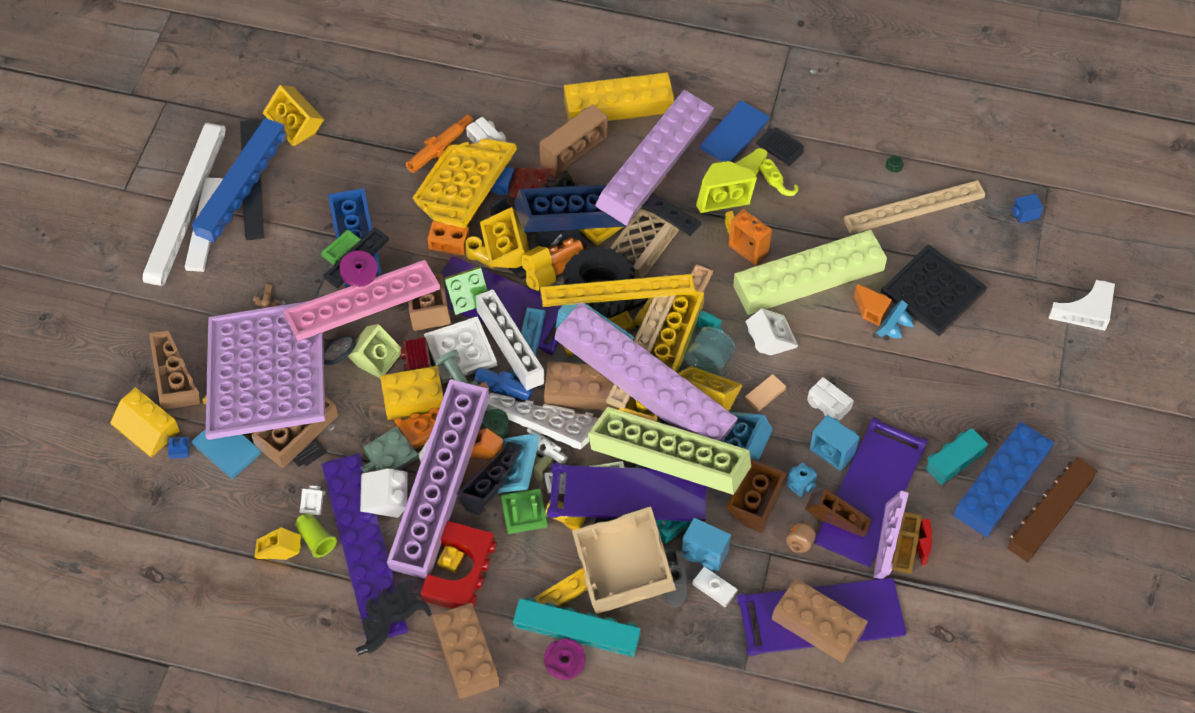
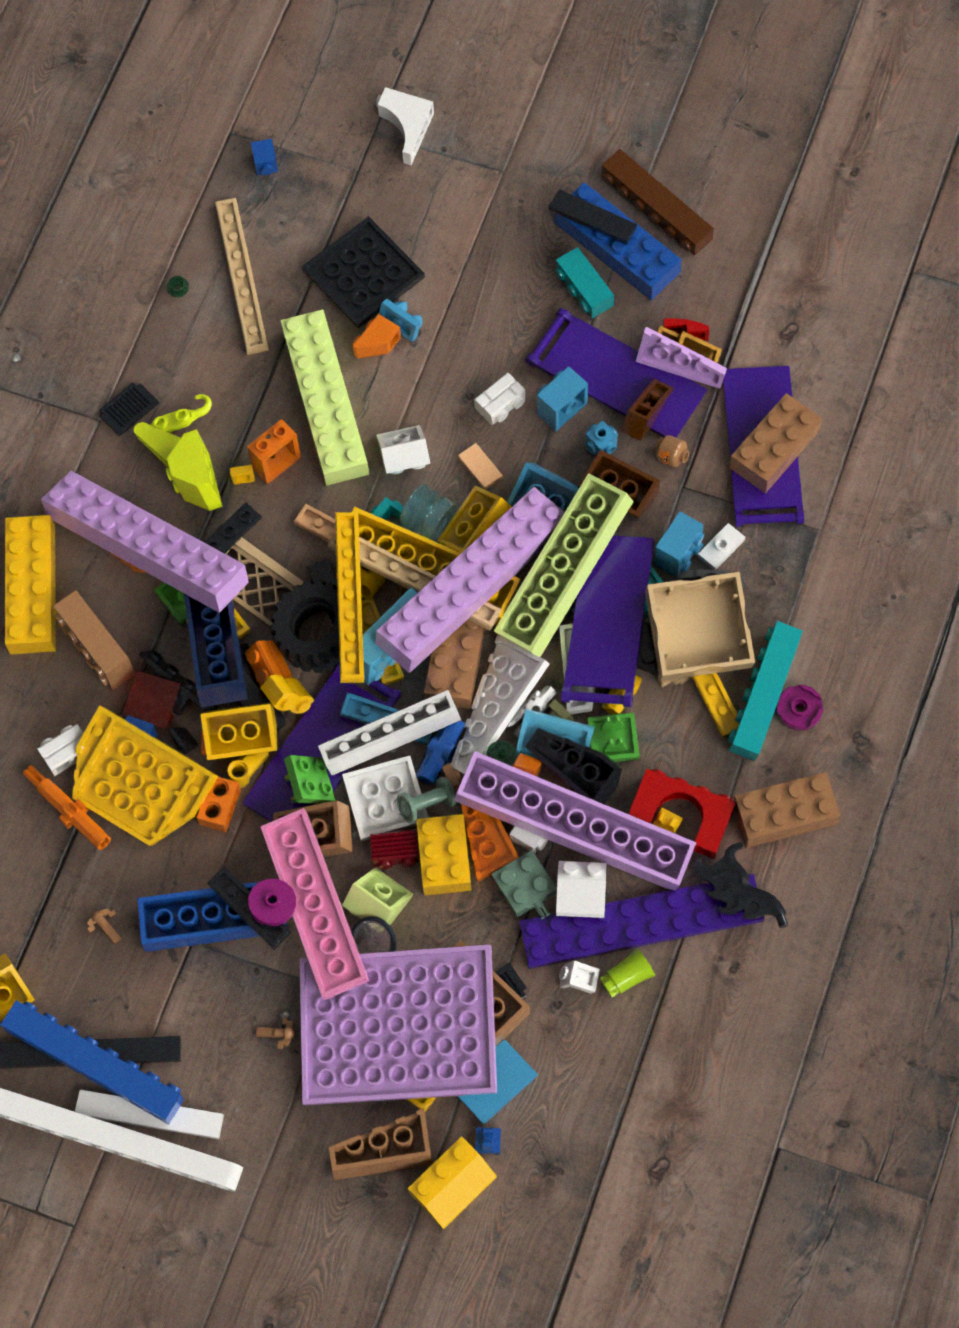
camera: 80 degrees left, 10 degrees up
(278, 545) = (637, 1018): yellow slope -> none
(340, 247) = (231, 926): bright green tile -> none
(355, 174) = (98, 917): none -> medium nougat piece
(734, 132) = (101, 456): blue tile -> none
(1016, 448) = (592, 217): none -> black tile

